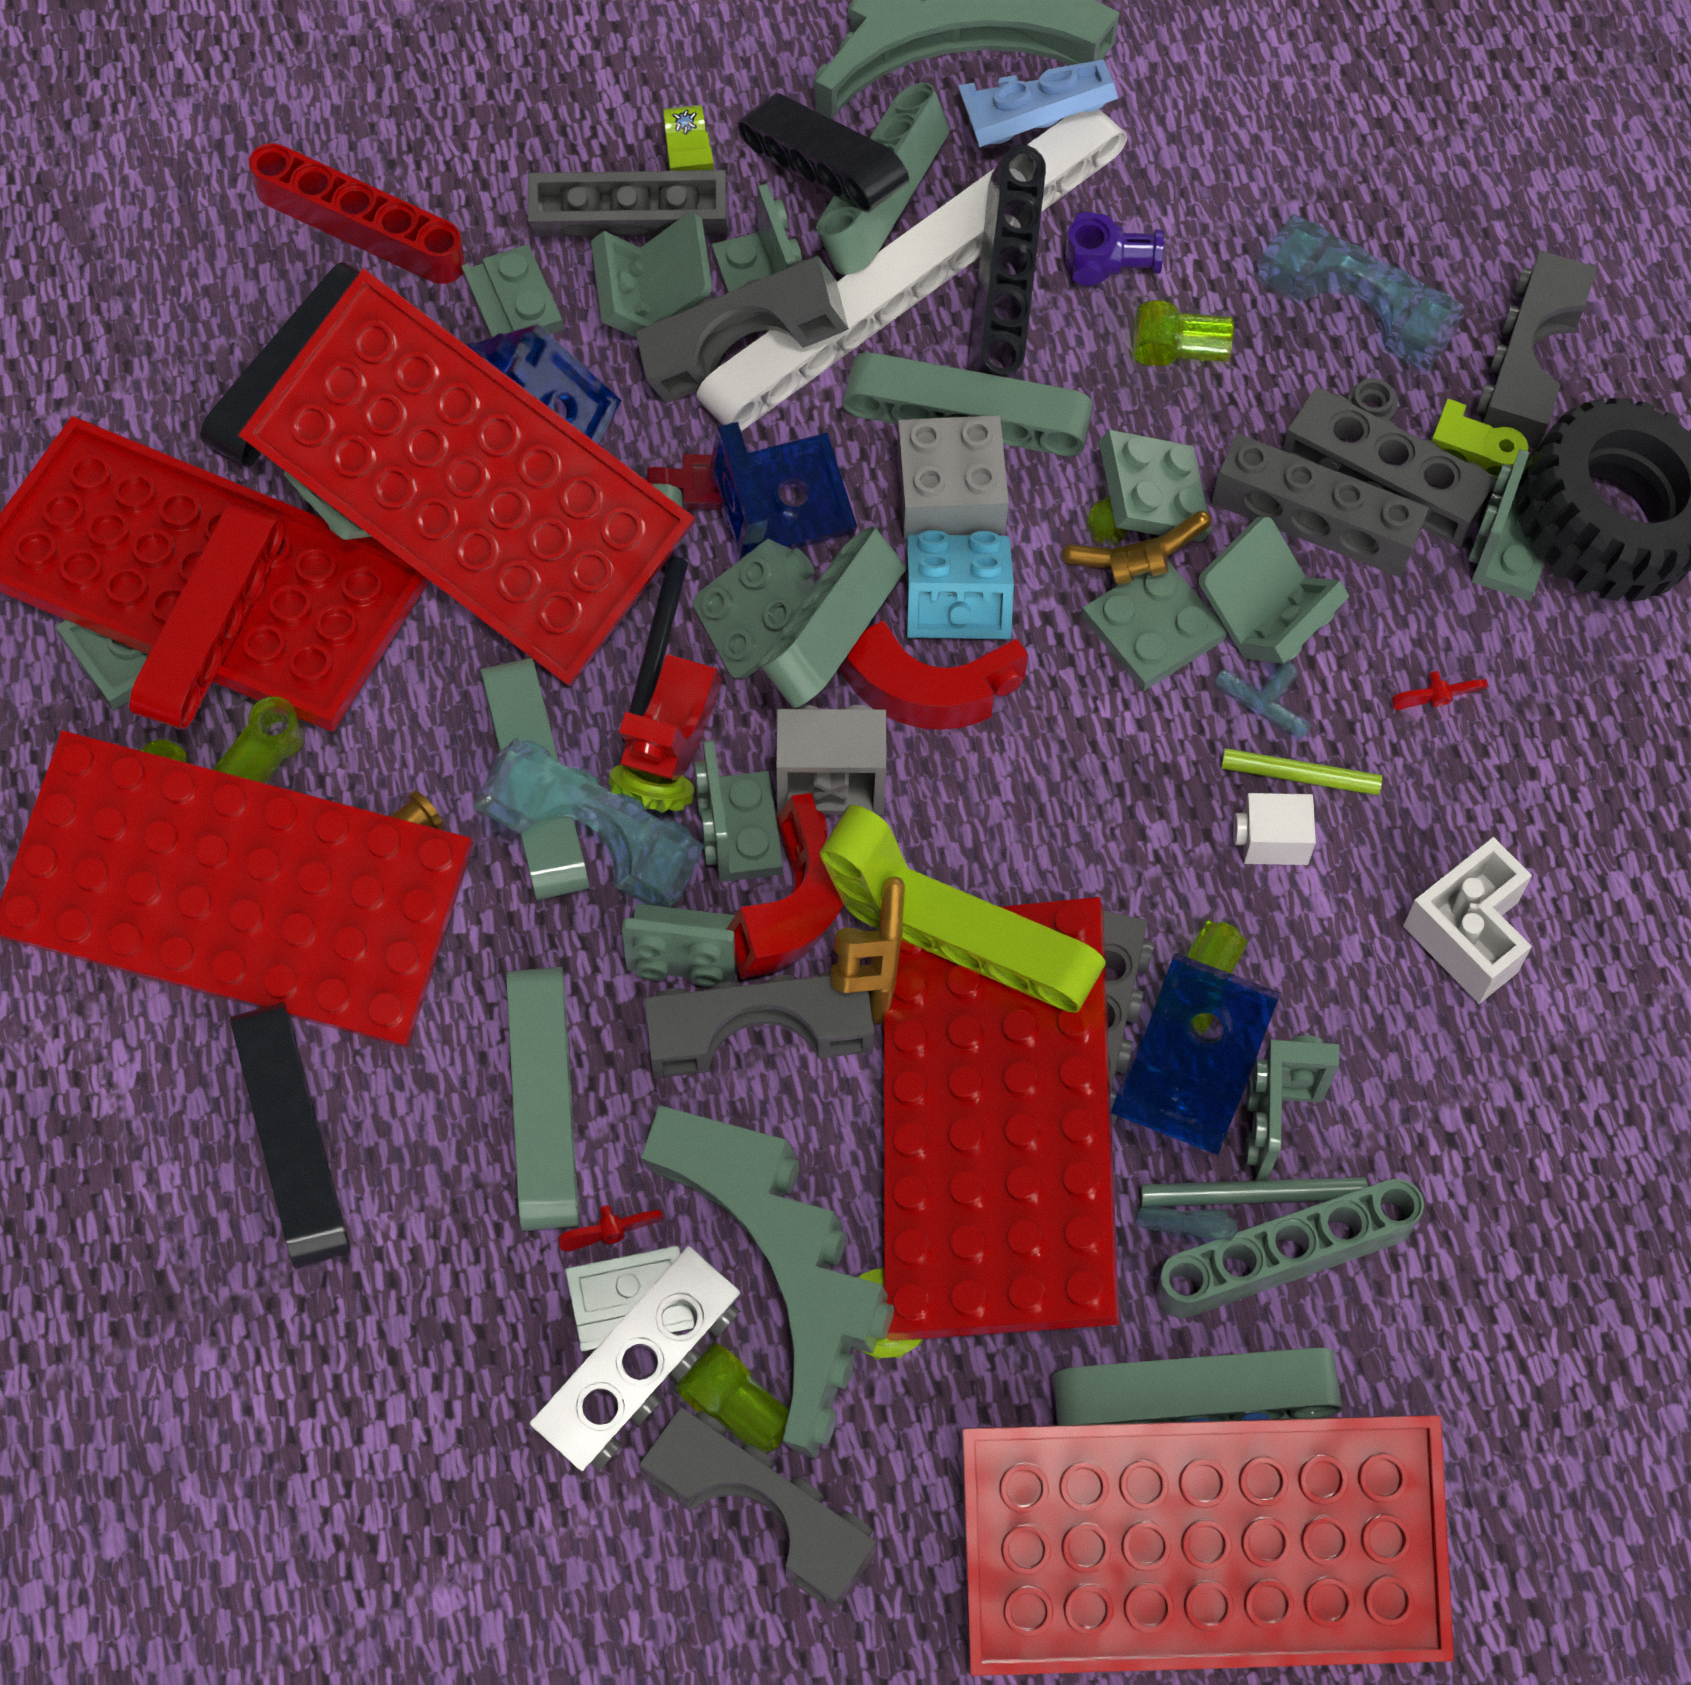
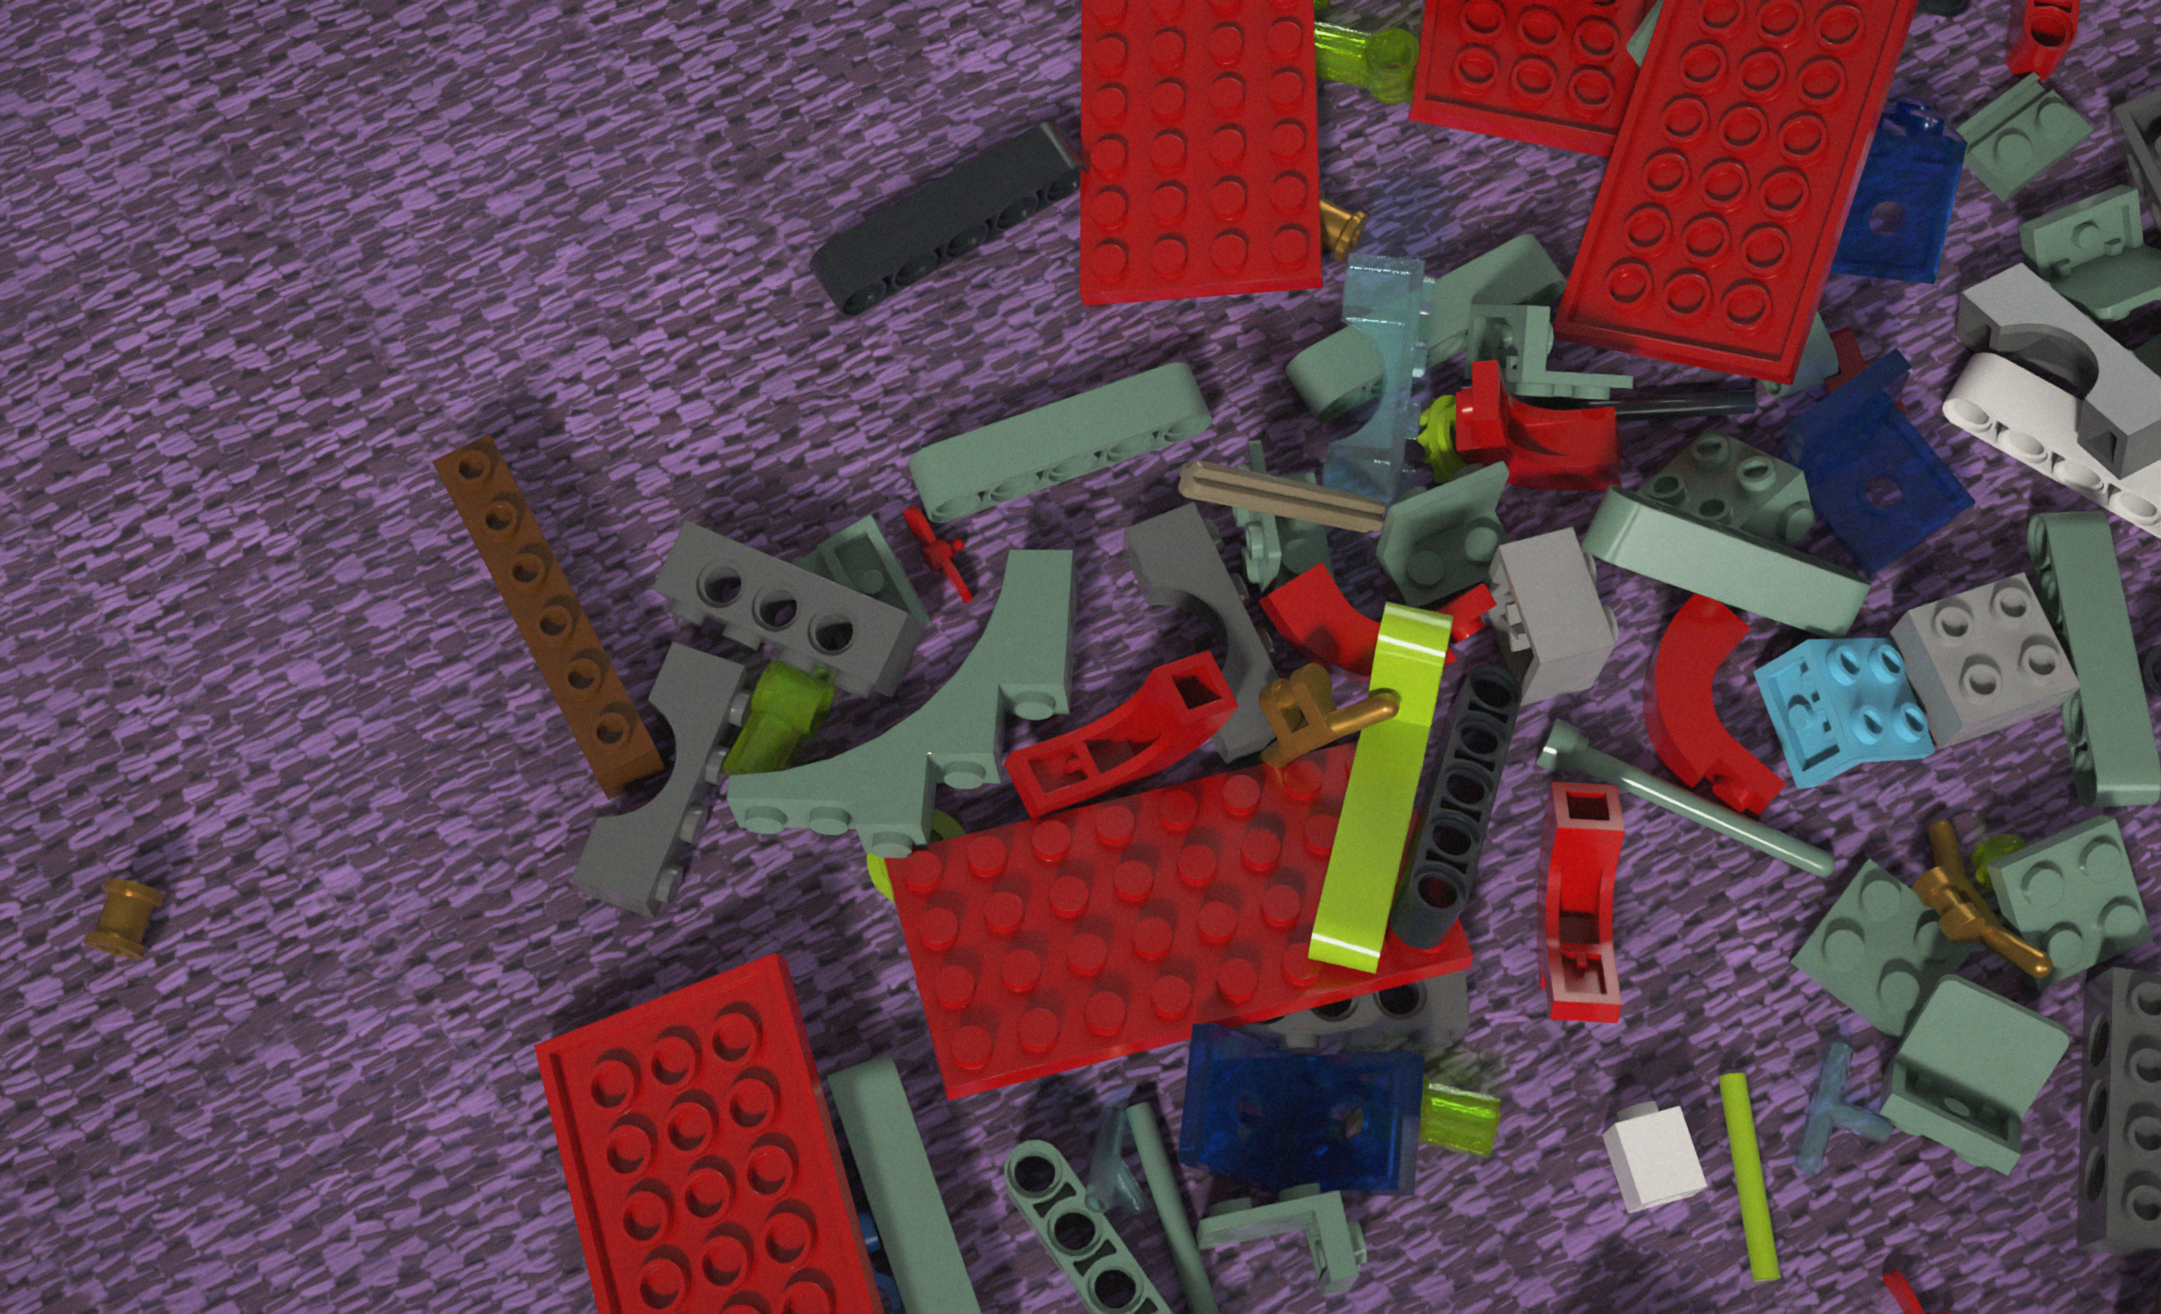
camera: 75 degrees right, 5 degrees up
(568, 1577) = (550, 617): none -> reddish brown brick
(595, 702) = (1521, 342): none -> sand green bracket
(687, 913) = (1280, 496): none -> dark tan axle
(839, 1109) = (1147, 734): none -> red arch
(935, 789) = (1569, 751): none -> sand green piece
(987, 869) = (1456, 808): none -> black beam
(1056, 818) = (1575, 902): none -> red arch

